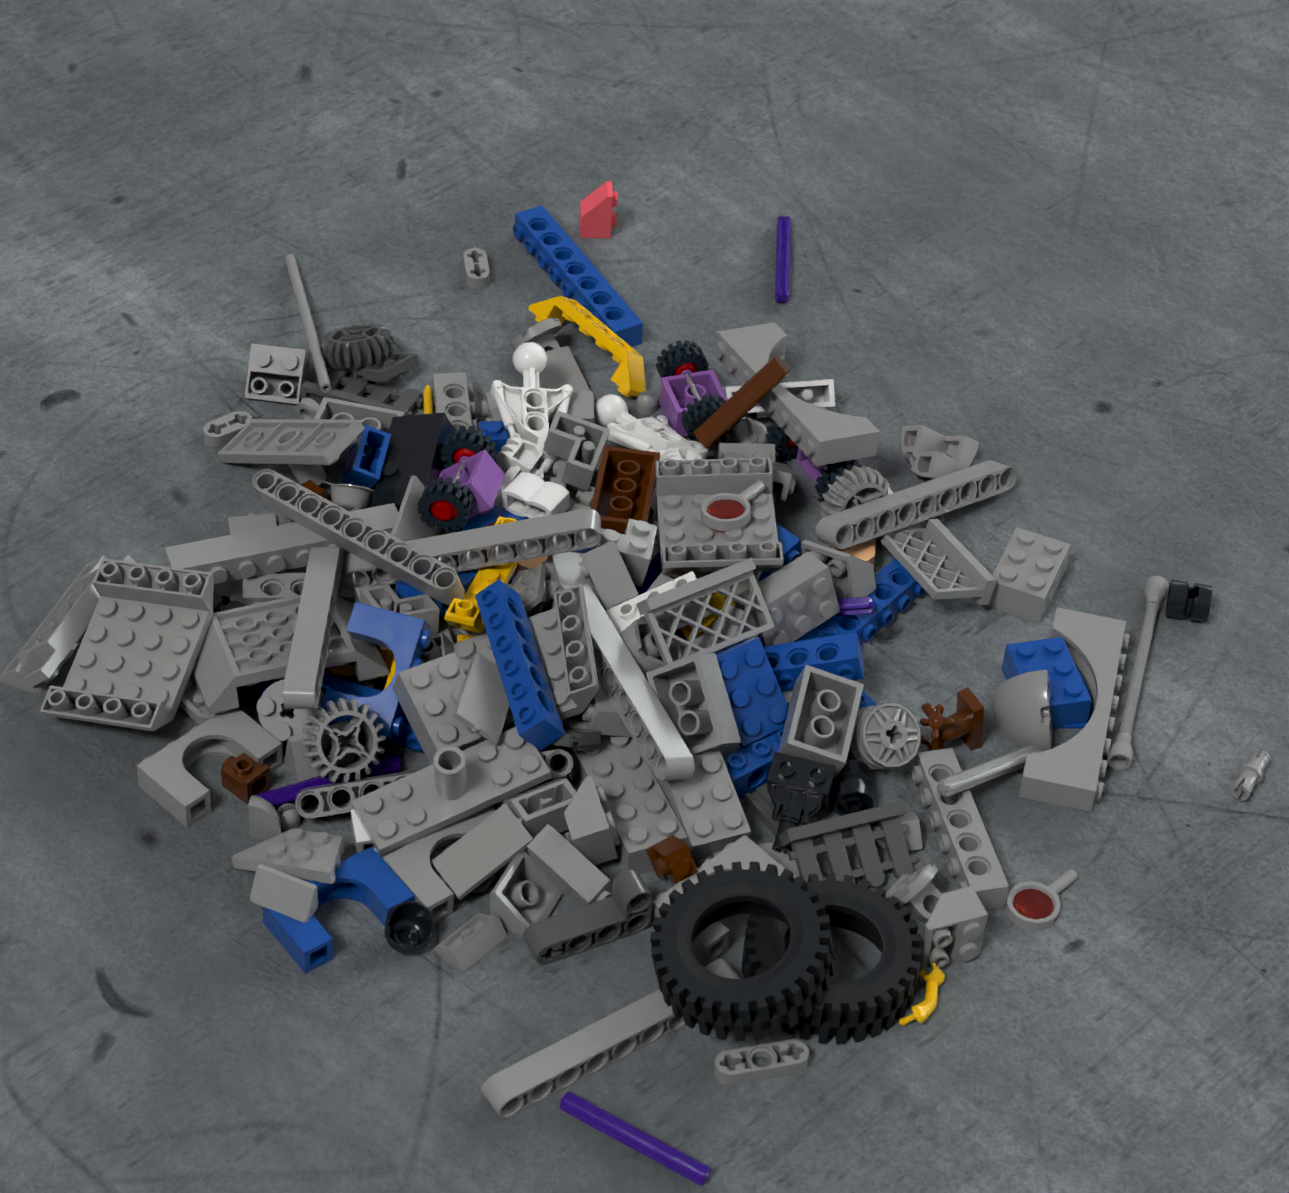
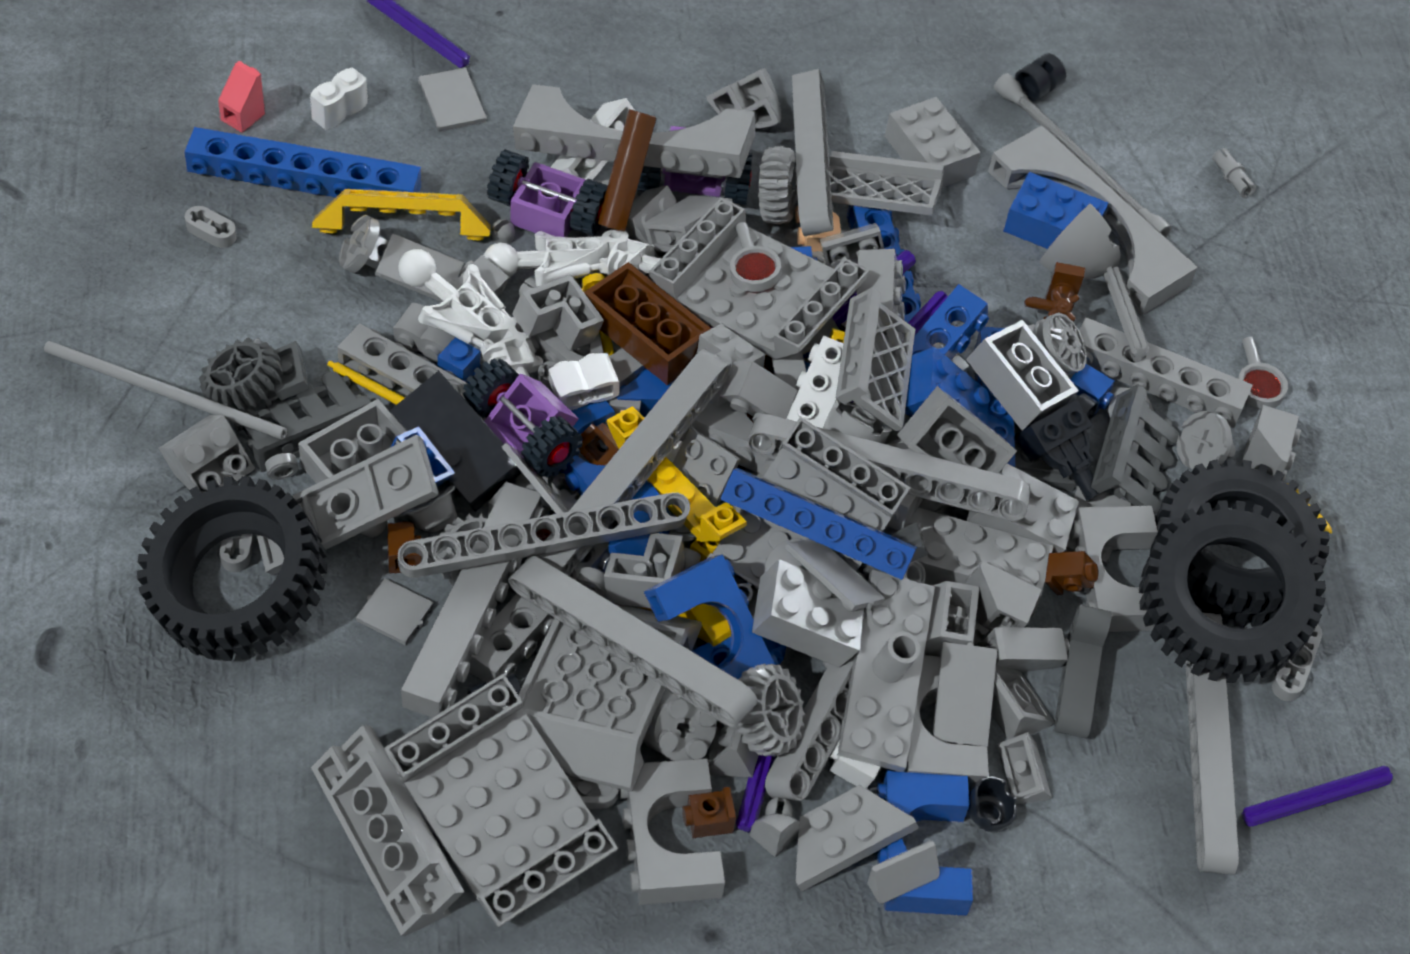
camera: 55 degrees left, 10 degrees up
(180, 396) = (200, 526): none -> black tyre
(660, 256) = (338, 98): none -> white brick
(740, 310) = (452, 99): none -> light grey piece
(887, 786) = (1094, 385): none -> blue brick

